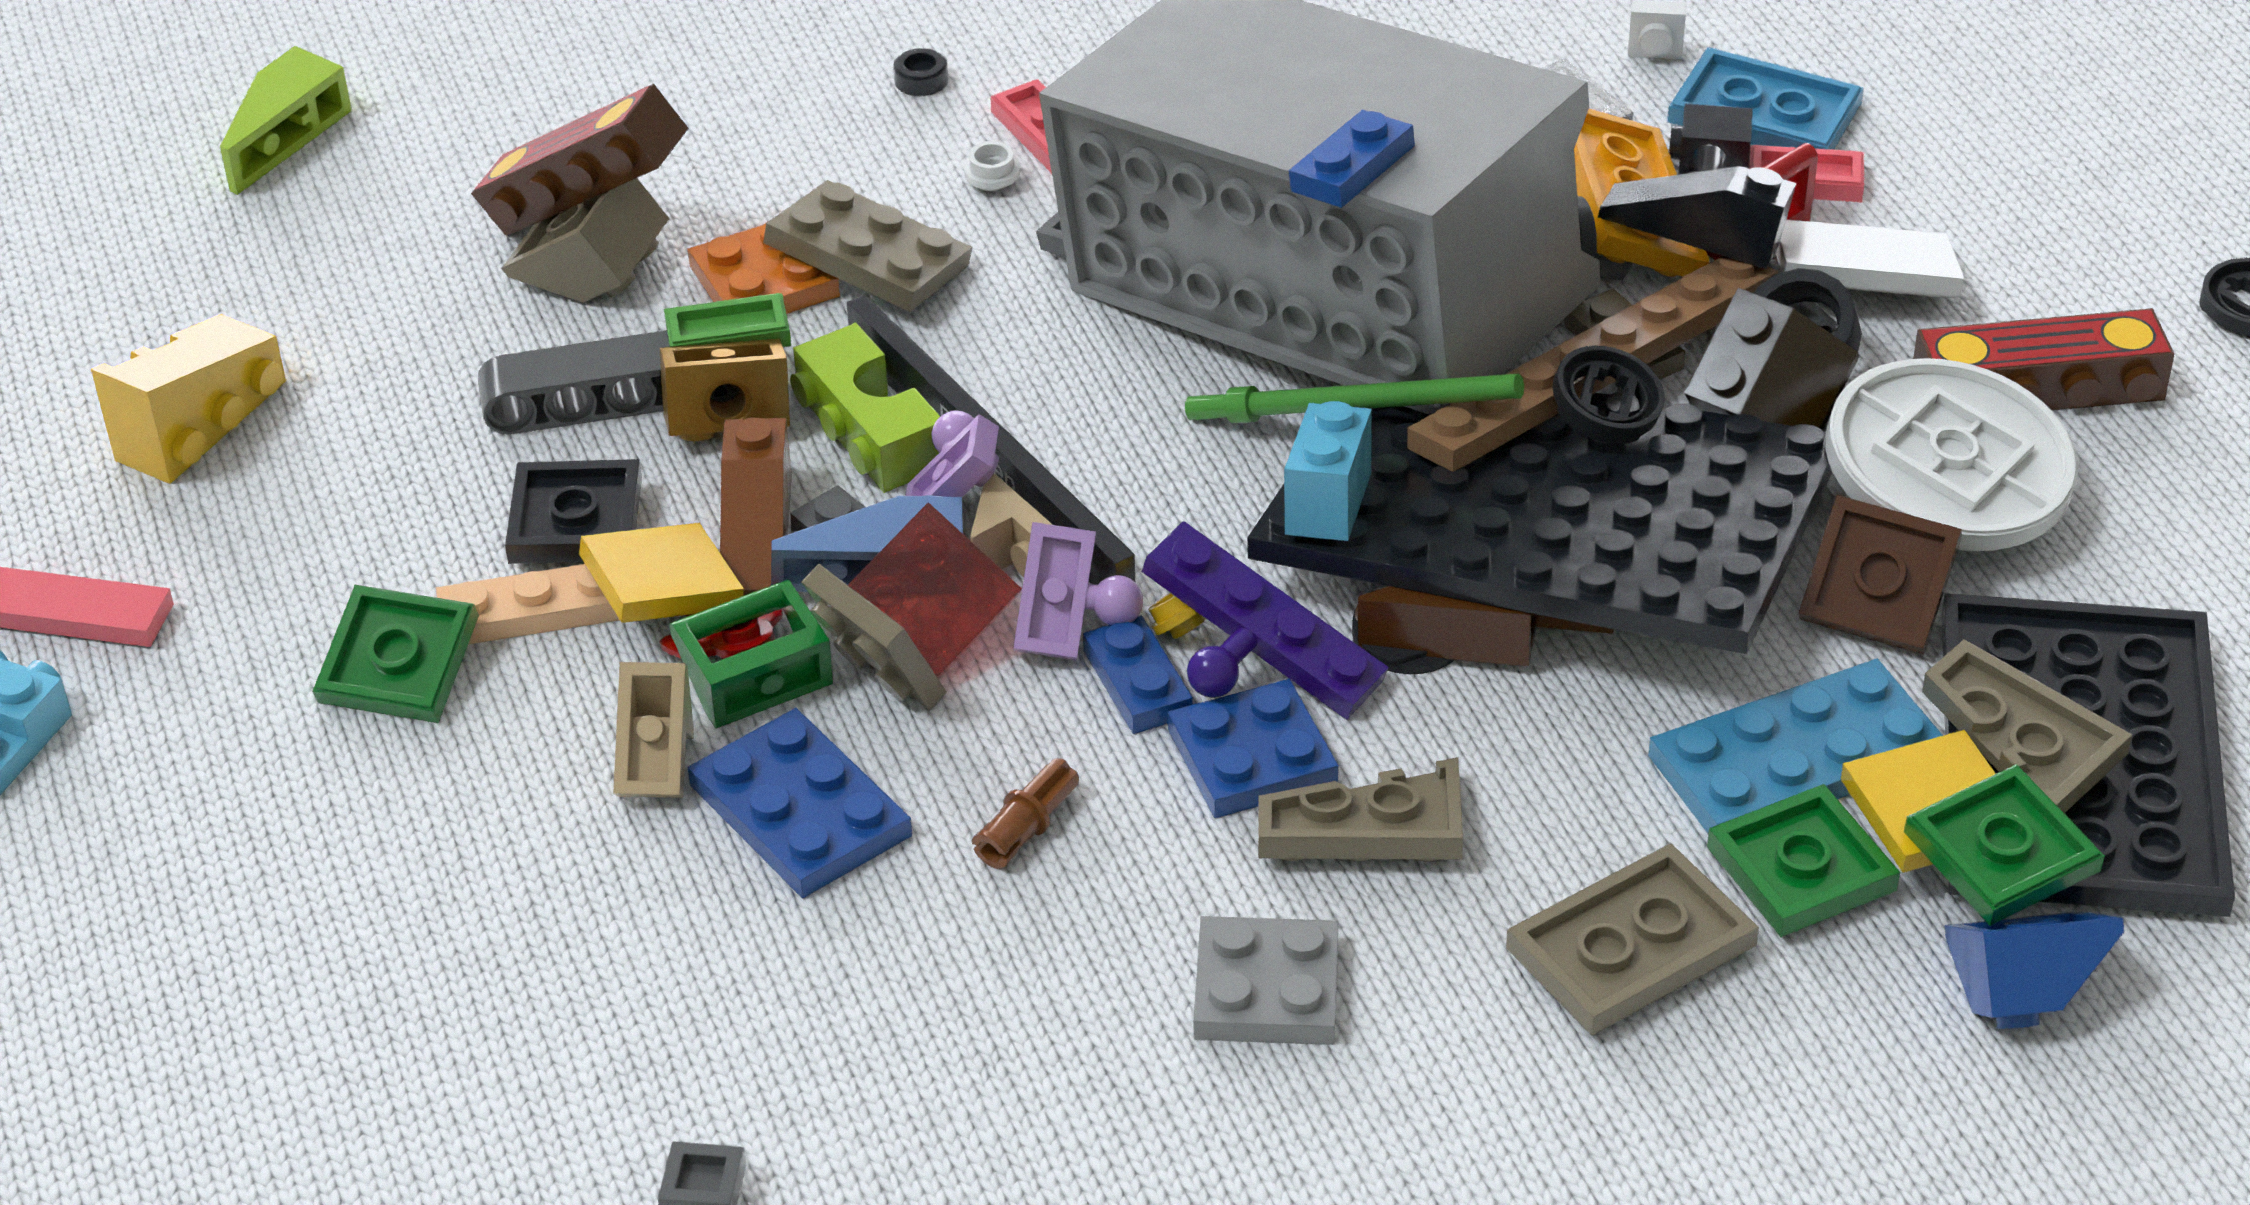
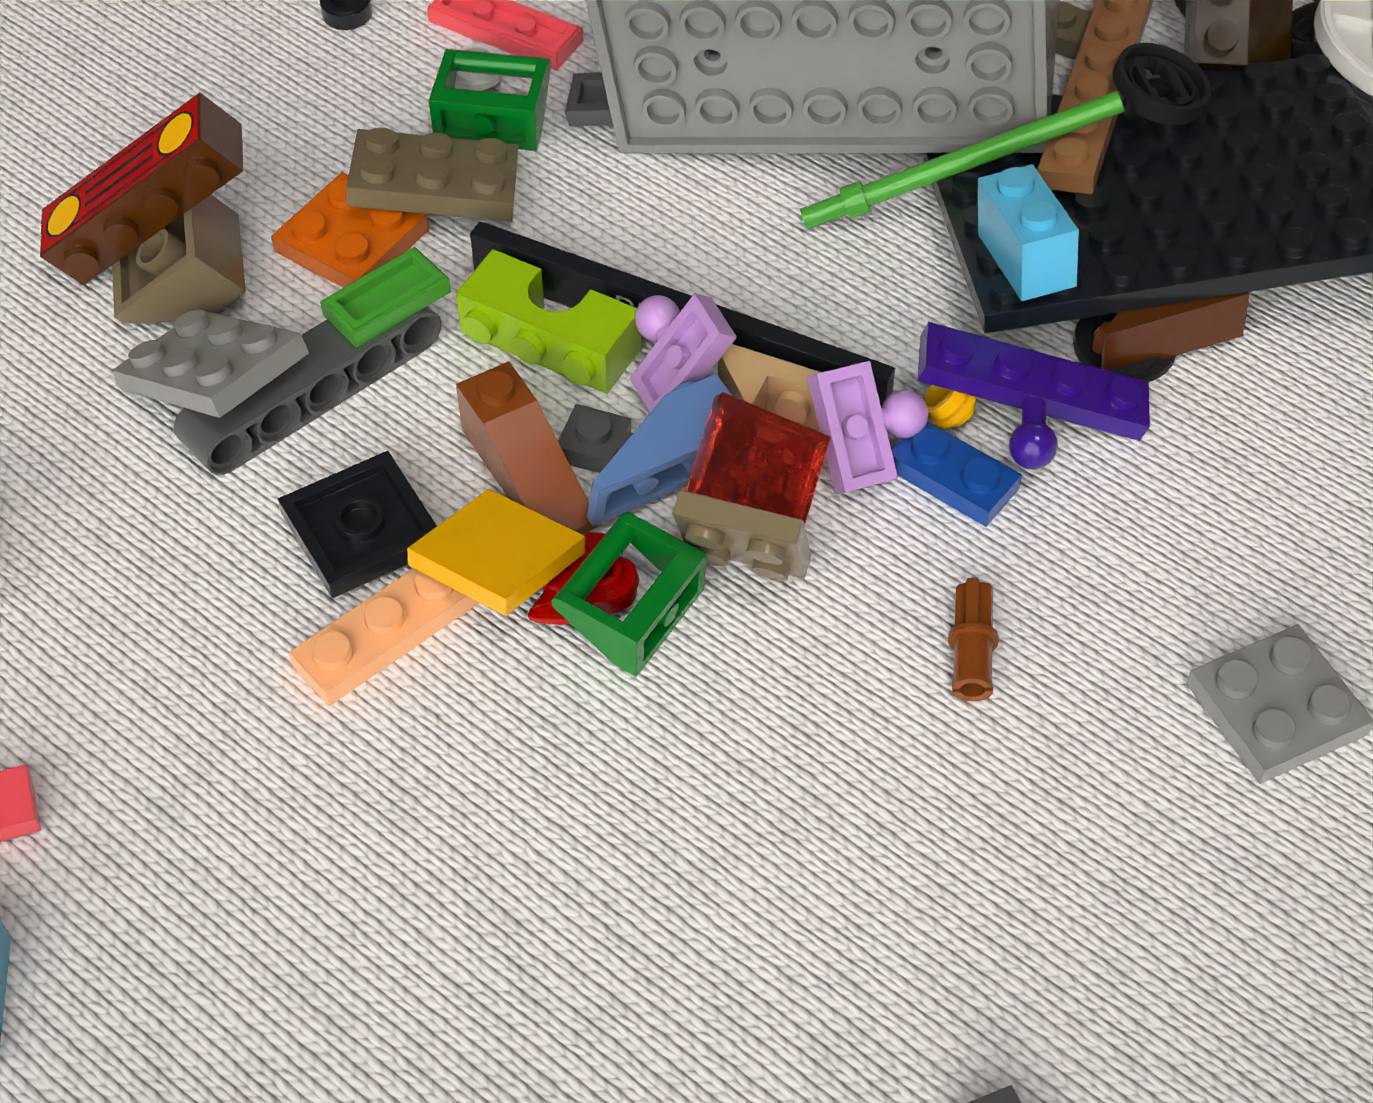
camera: 30 degrees left, 10 degrees up
(396, 653) = (301, 735): green tile -> none
(541, 328) = (209, 362): none -> light grey plate
(652, 729) = (611, 709): tan slope -> none
(694, 372) = (418, 353): pearl gold brick -> none
(799, 802) = (771, 716): blue plate -> none
(967, 214) = (490, 114): none -> green tile
(1251, 746) = (1096, 498): blue plate -> none
(1382, 820) = (1245, 521): dark tan wing -> none

